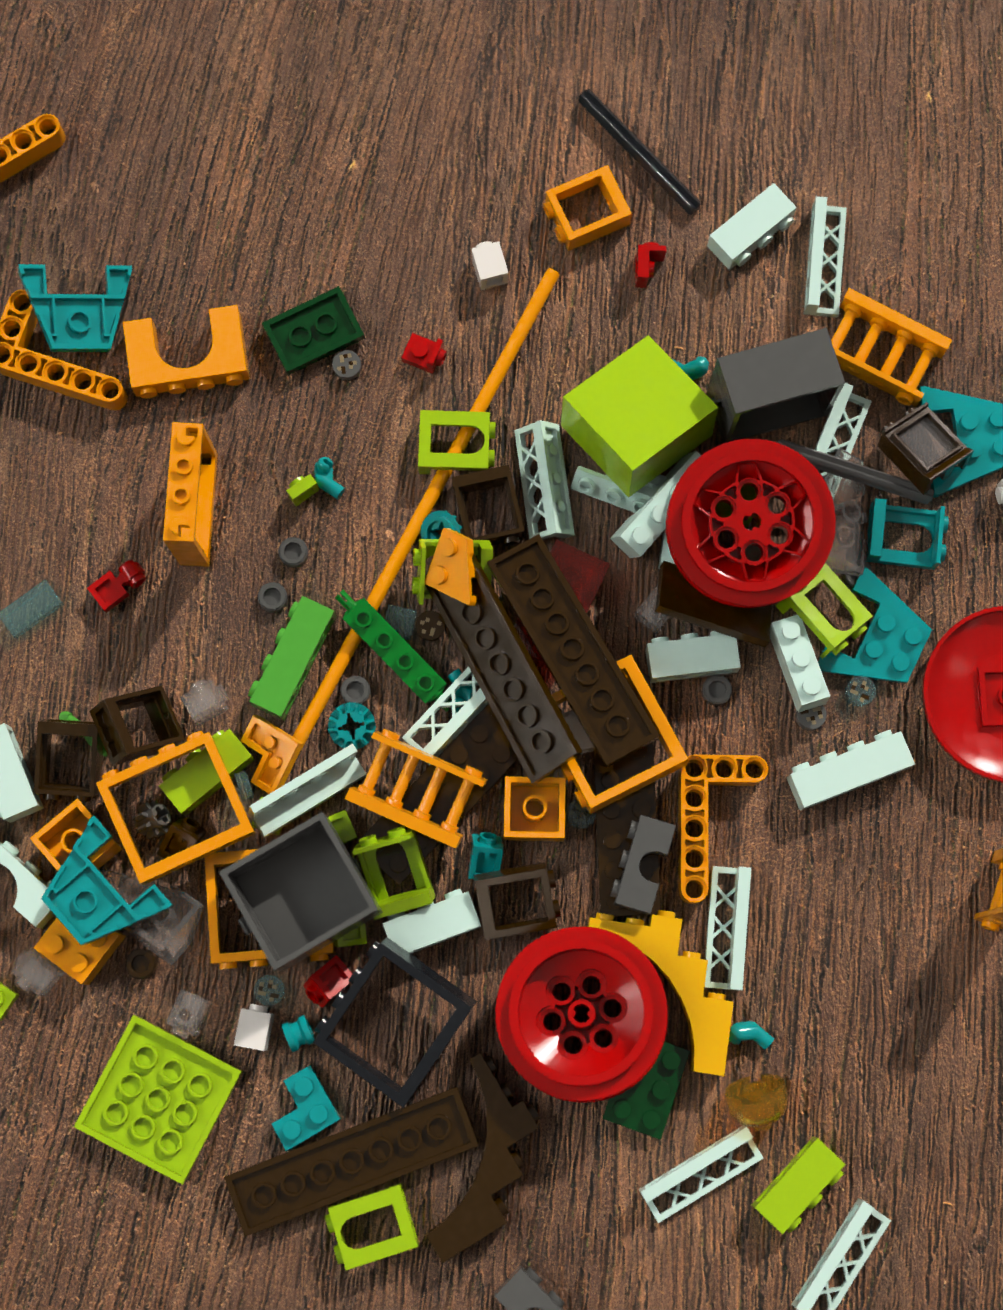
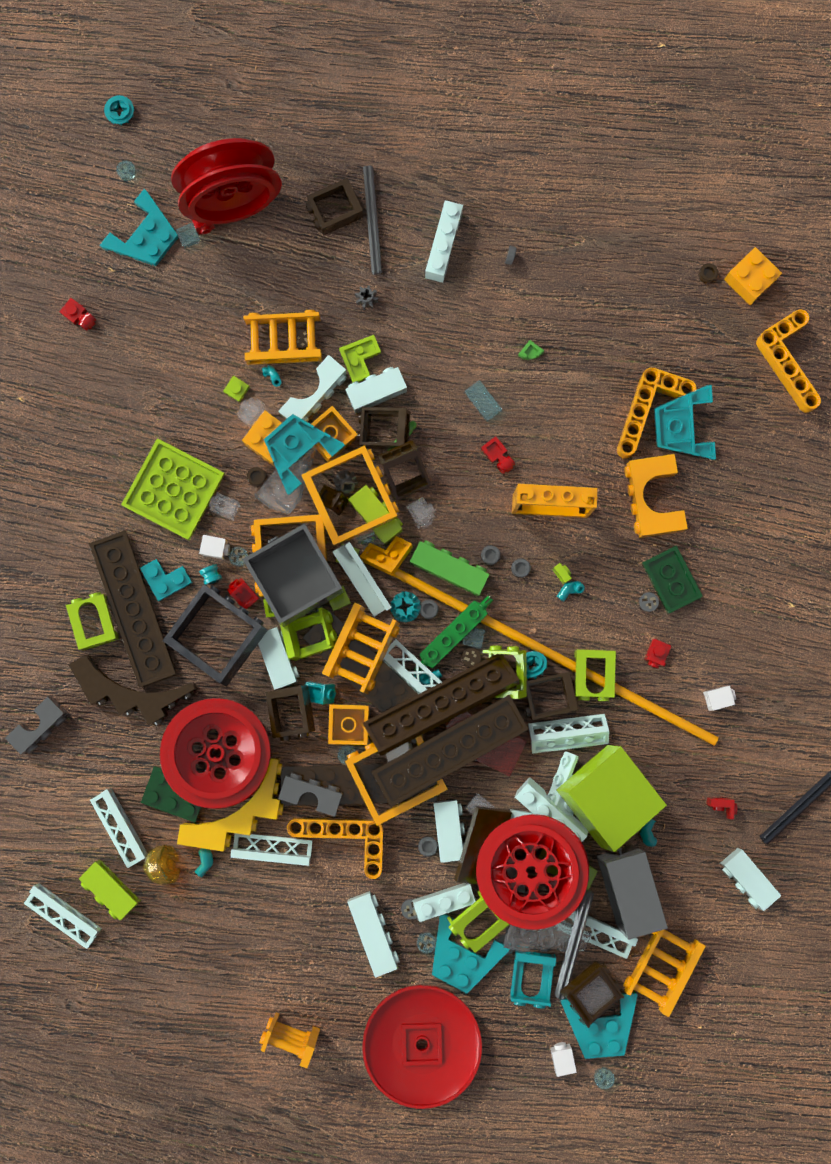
camera: 90 degrees right, 5 degrees up
(453, 567) = (505, 672): light orange wing -> none
(605, 180) = (766, 785): light orange window -> none
(817, 256) = (730, 924): light aqua fence -> none

